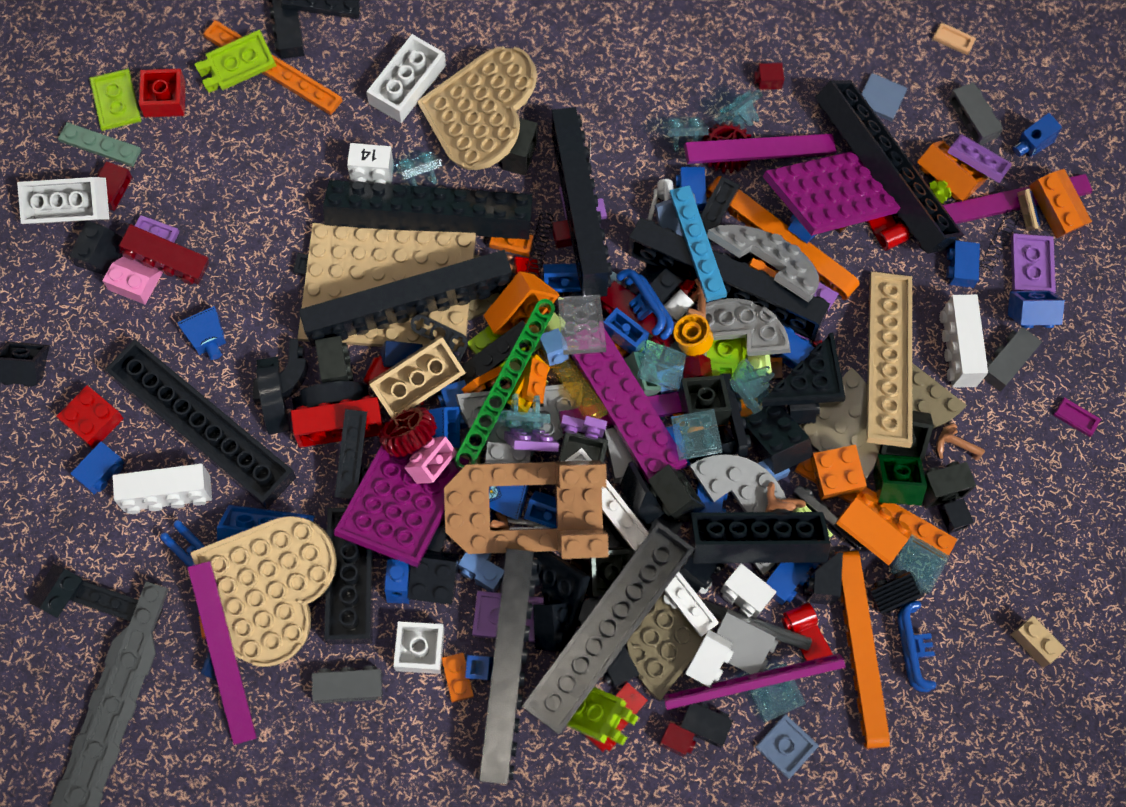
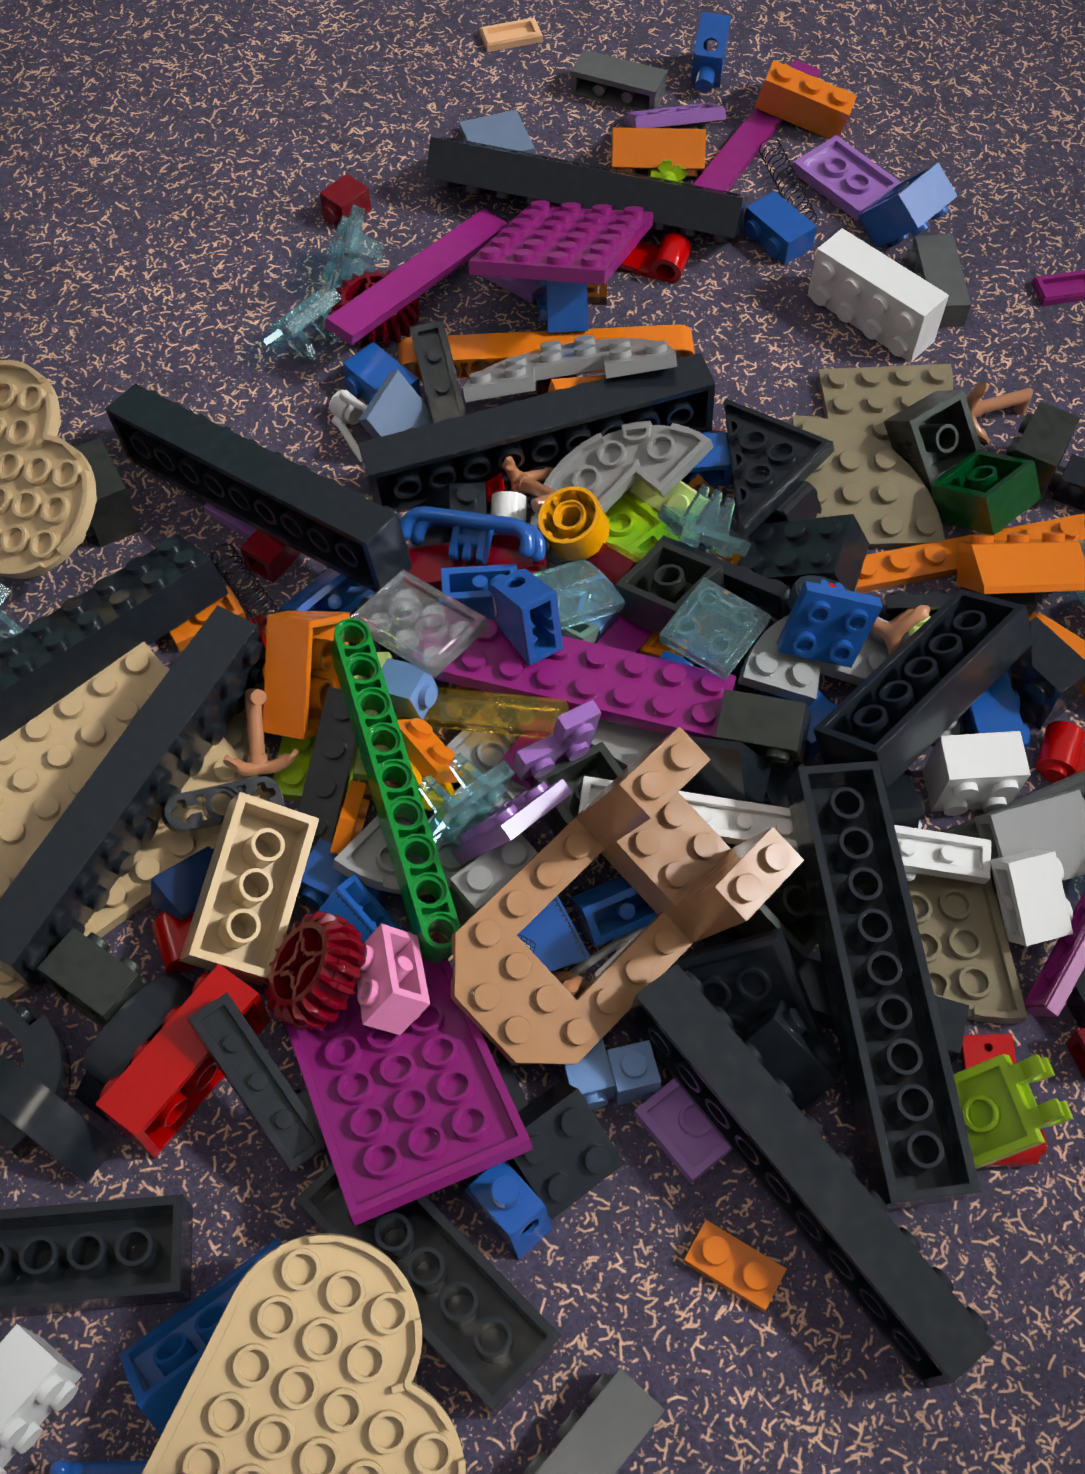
camera: 40 degrees left, 10 degrees down
(419, 647) = (641, 1275): white brick -> none
(472, 324) = (256, 759): none -> nougat piece
(479, 667) = (757, 1215): blue brick -> none
(625, 352) = (527, 614): none -> blue torso
(698, 244) = (468, 412): dark azure plate -> none
(746, 472) = (827, 621): none -> blue plate
(838, 472) = (914, 539): orange brick -> none
(890, 360) = (835, 371): tan plate -> none
(1029, 210) = (782, 126): tan slope -> none

